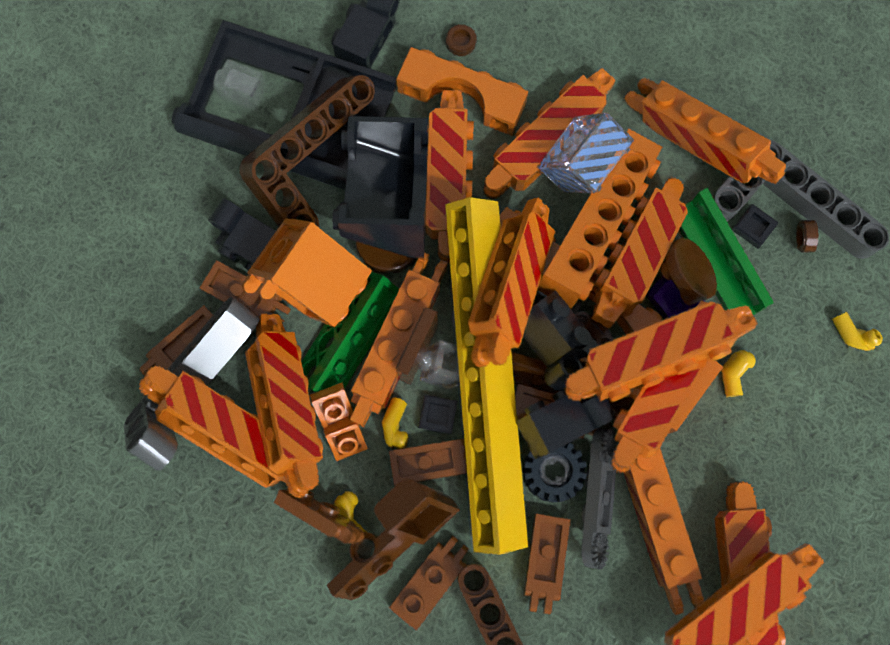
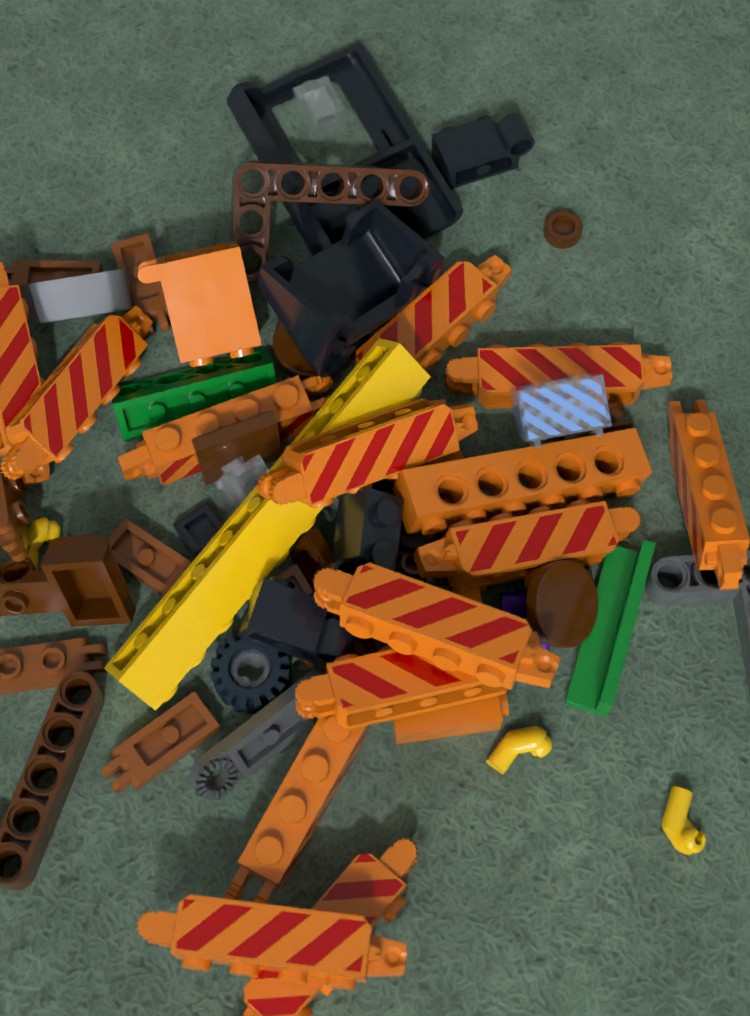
camera: 45 degrees right, 10 degrees down
(241, 234) = (193, 224): black hinge -> none
(334, 414) = (100, 471): orange slope -> none
(390, 424) = (149, 501): yellow arm -> none
(428, 75) = (494, 229): orange arch -> none
(755, 226) = (681, 632): black tile -> none
(807, 236) = (722, 683): reddish brown tile -> none

